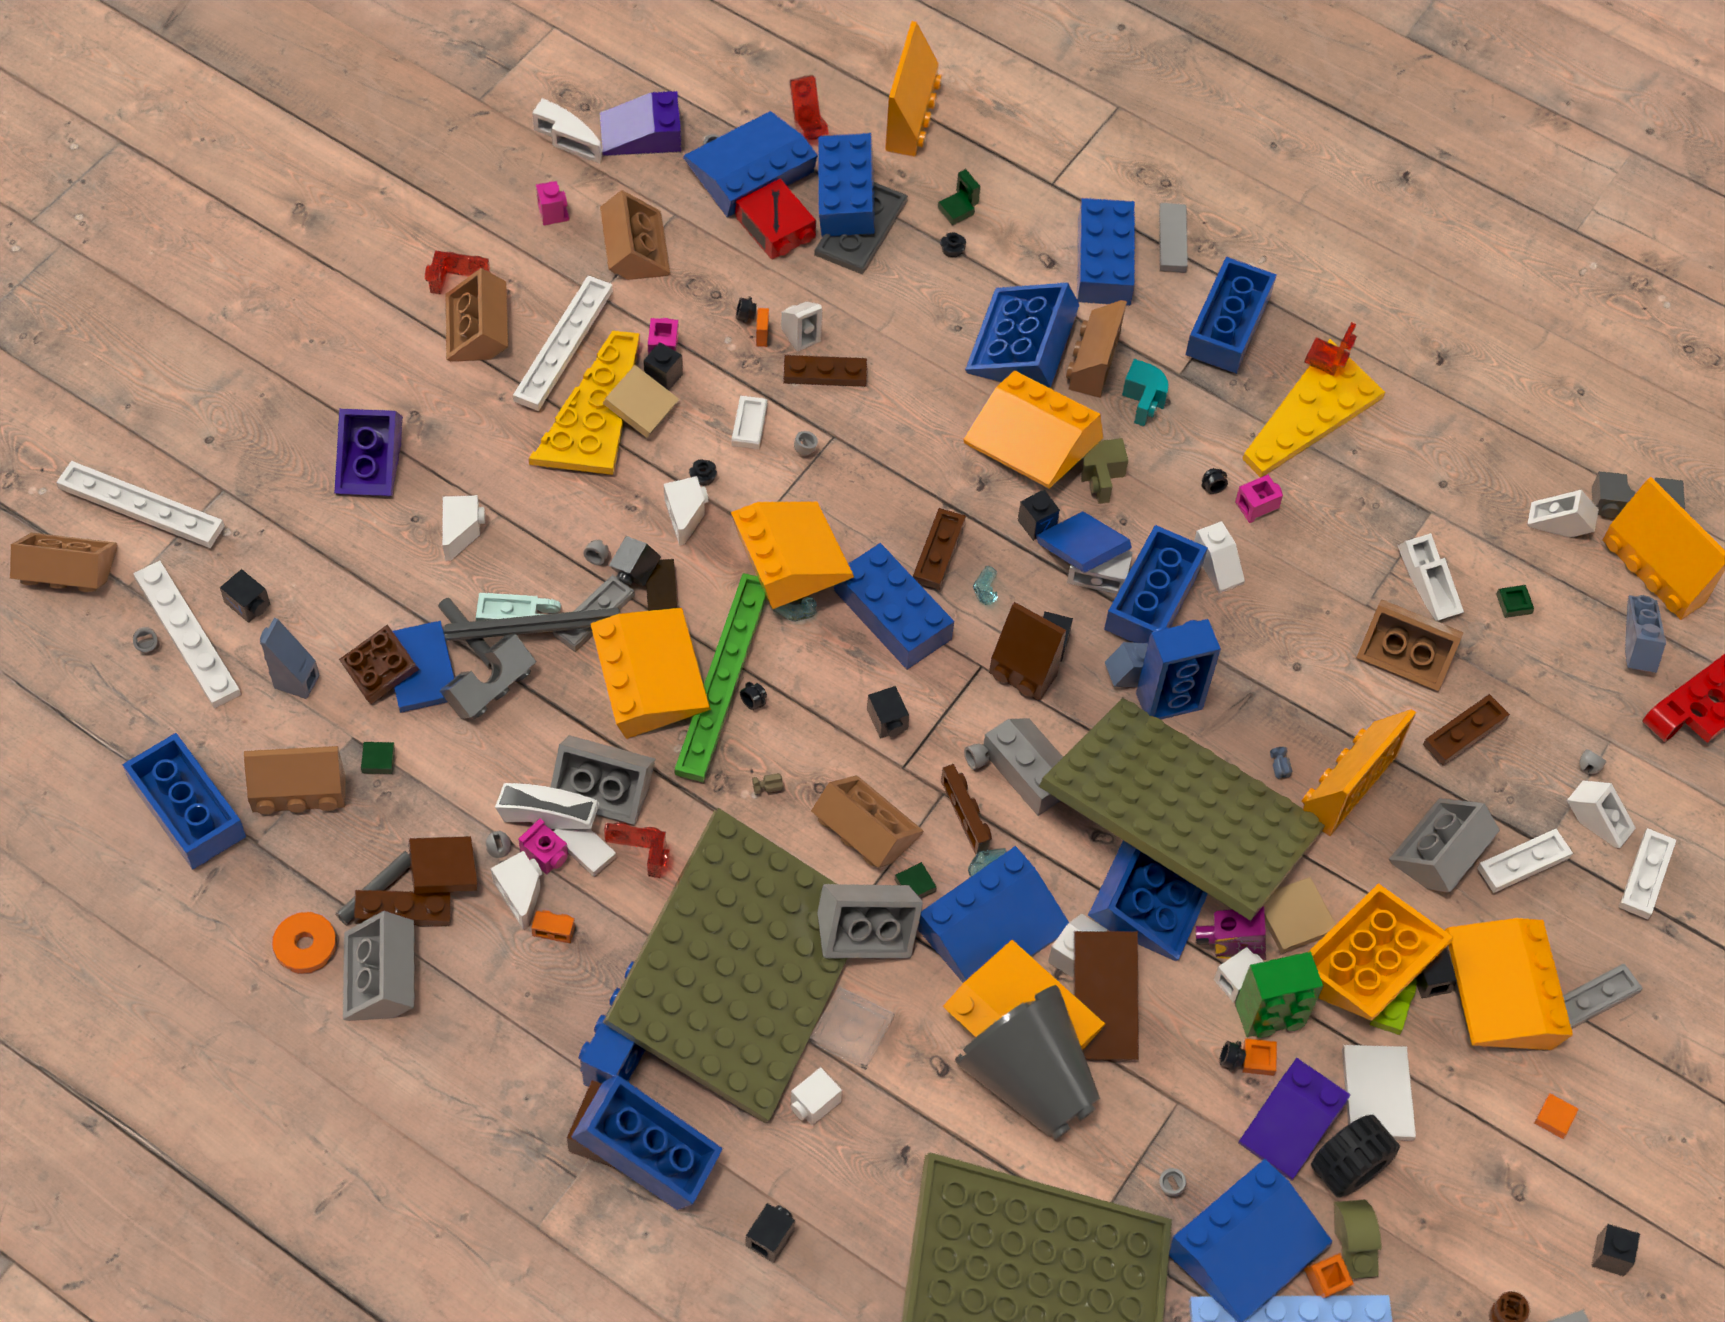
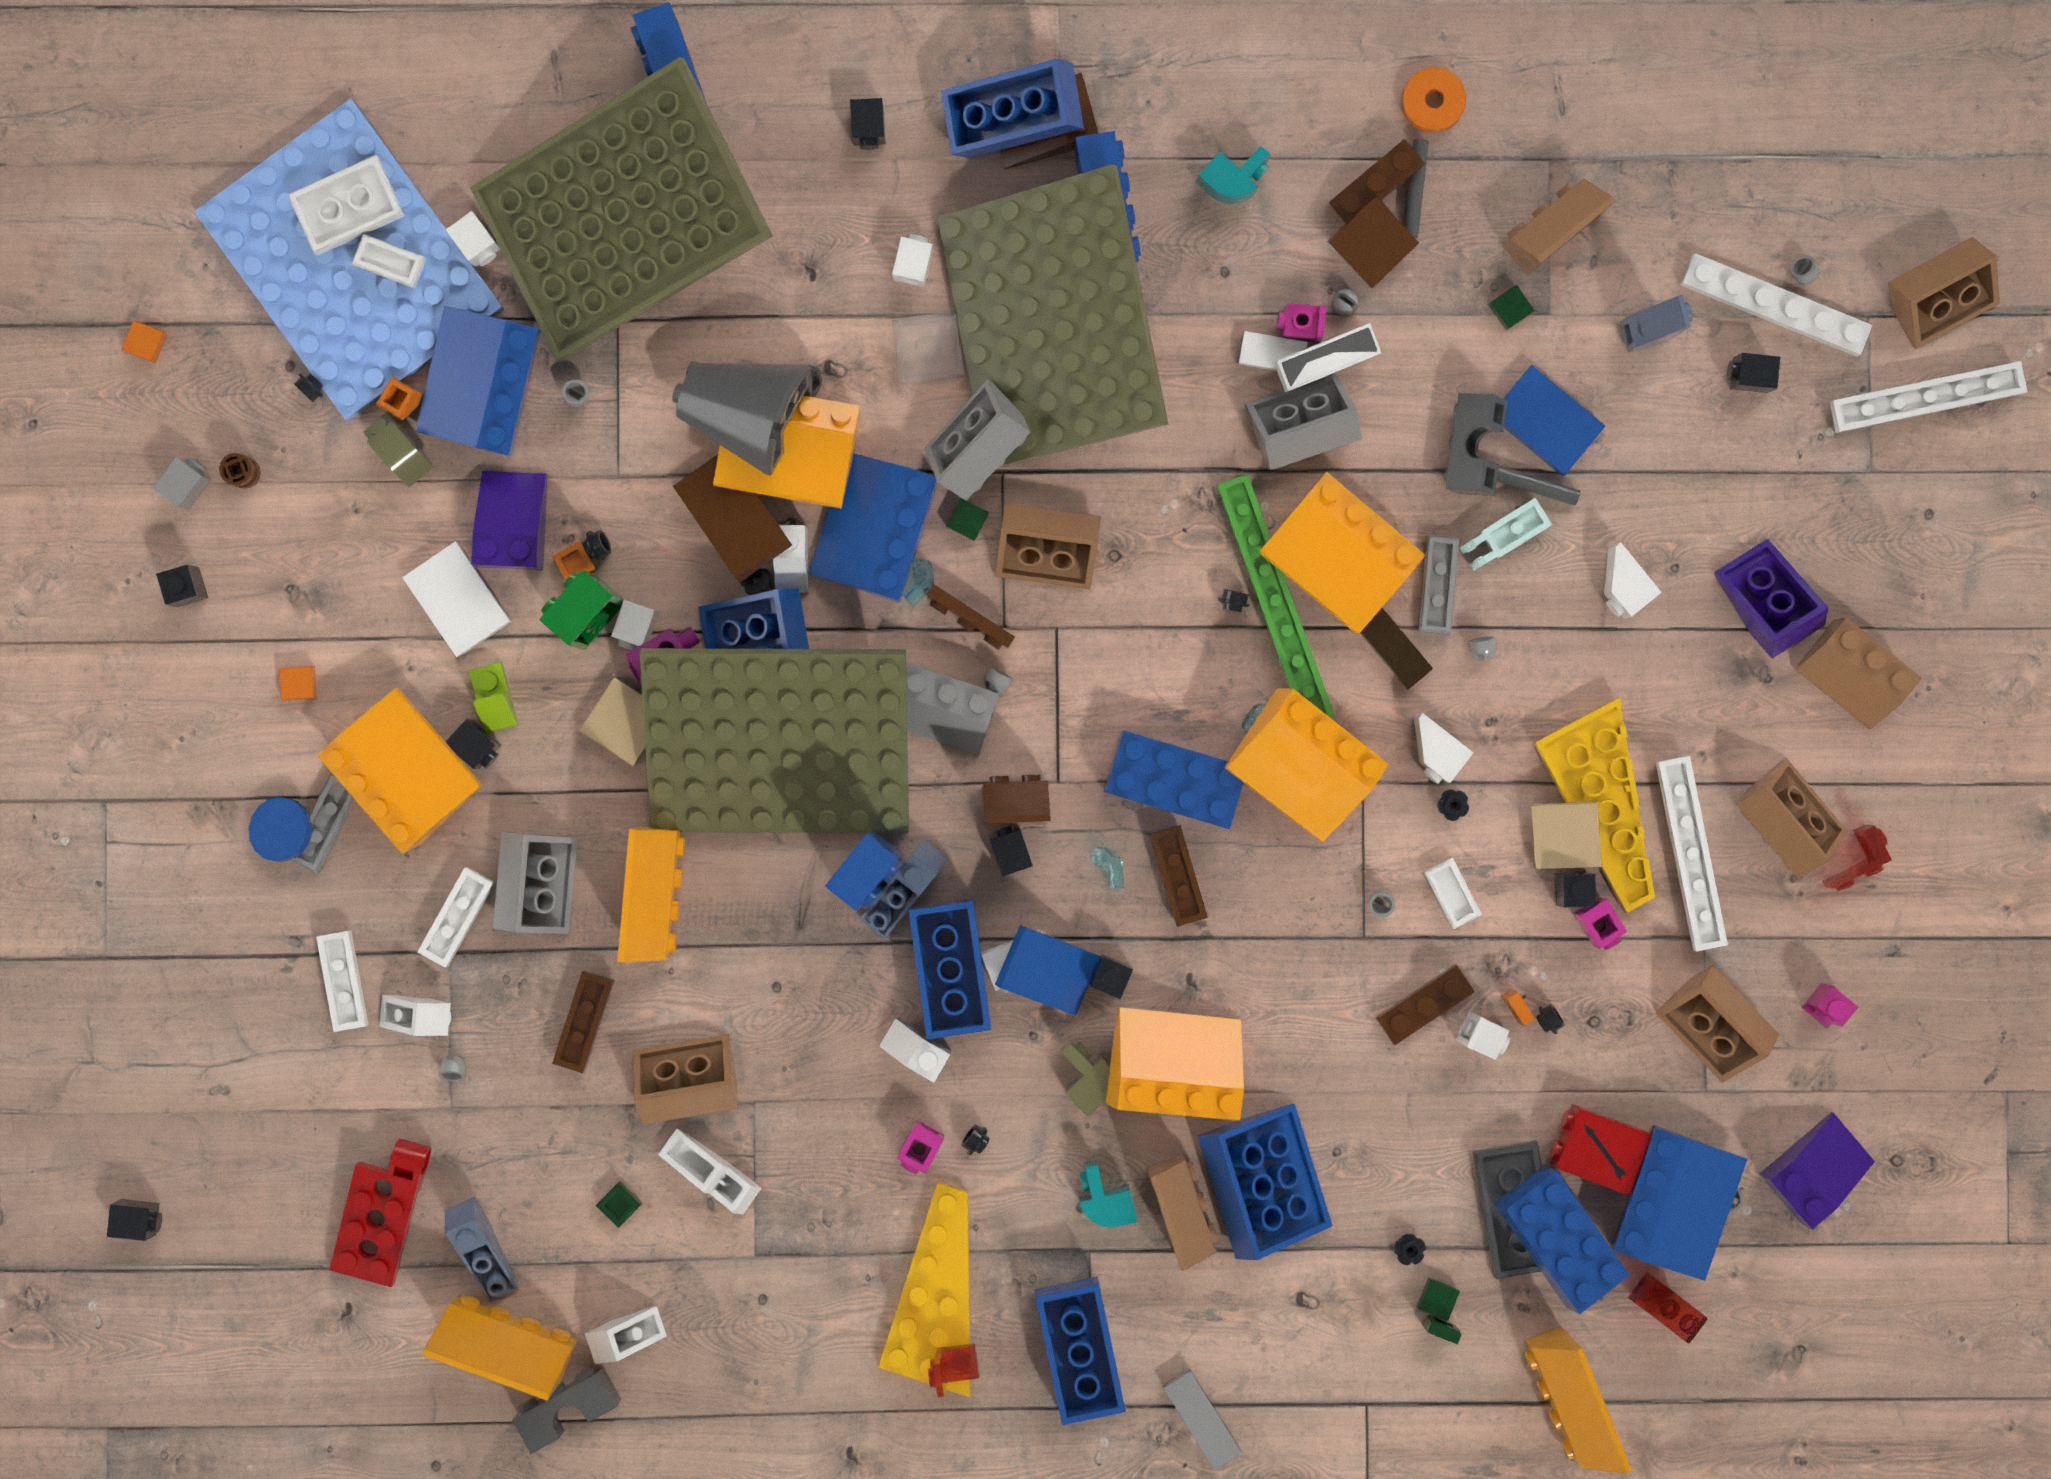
camera: 145 degrees right, 30 degrees up
(184, 801) = (1636, 140): blue brick -> none
(352, 371) = (1857, 672): none -> medium nougat slope
(379, 664) = (1582, 391): reddish brown tile -> none
(379, 968) = (1351, 117): light grey slope -> none
(512, 981) = (1228, 182): none -> teal brick
(518, 885) = (1294, 271): white slope -> none
(526, 624) = (1478, 524): dark grey axle -> none
(553, 926) = (1240, 259): orange piece -> none
(566, 131) = (1888, 1108): white slope -> none
(634, 561) = (1438, 654): black brick -> none
(641, 837) = (1201, 385): clear red bracket -> none
(770, 783) = (1157, 525): dark tan piece -> none
(888, 712) = (1103, 665): black brick -> none
(1106, 251) = (1253, 1345): blue brick -> none
(1281, 764) = (725, 866): sand blue piece -> none
(1355, 1155) = (434, 510): black tyre -> none
(1375, 953) = (526, 712): light orange slope -> none
(1636, 1011) = (280, 829): none -> blue tile

